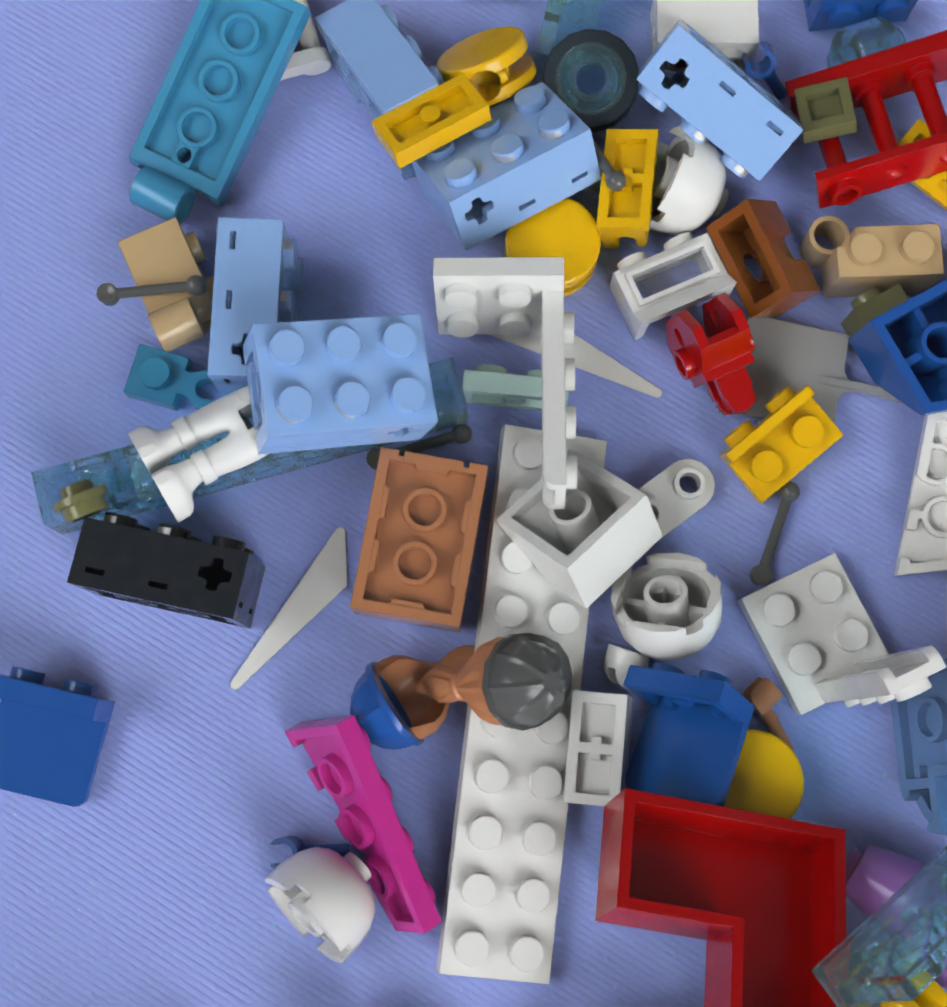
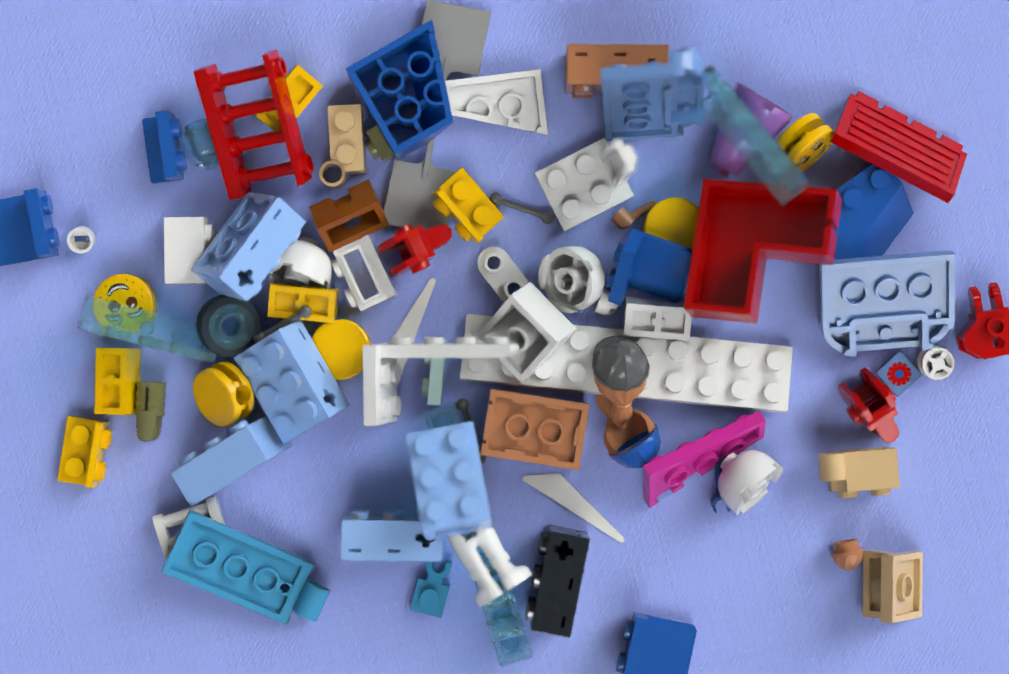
camera: 85 degrees left, 10 degrees up
(81, 501) = (520, 633): olive plate -> none
(110, 295) = (383, 628): dark grey hinge -> none
(170, 256) = (372, 589): tan hinge -> none
(431, 120) = (271, 429): yellow plate -> none
(766, 70) = (218, 212): blue hand -> none
(825, 110) = (254, 177): olive plate -> none

